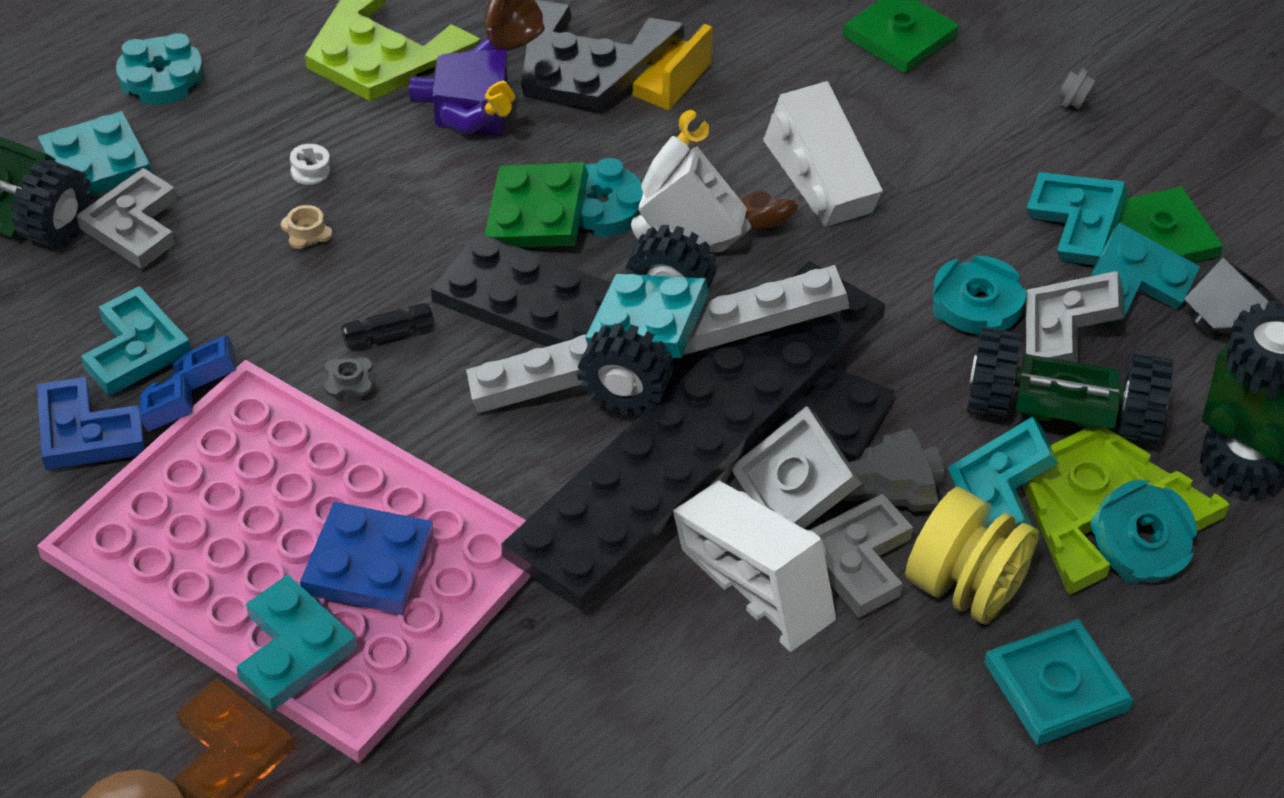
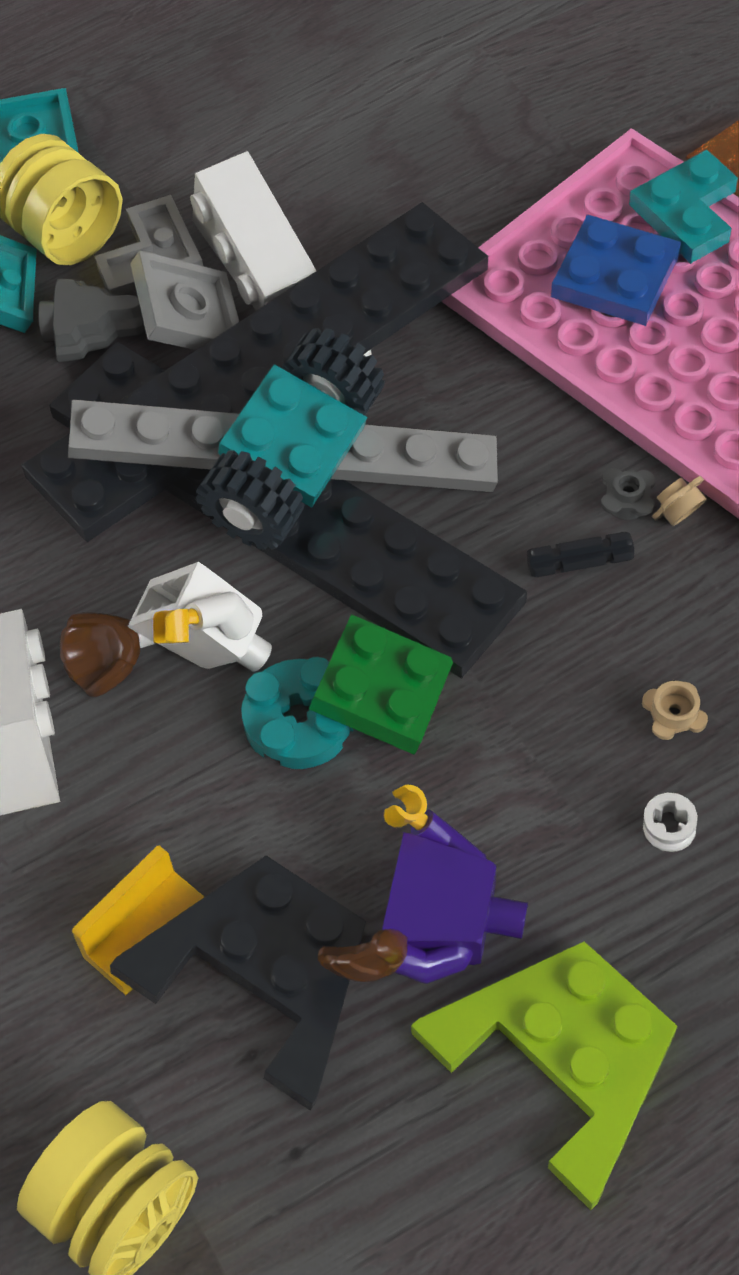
camera: 165 degrees left, 10 degrees up
(302, 365) = (679, 500): none -> tan plate

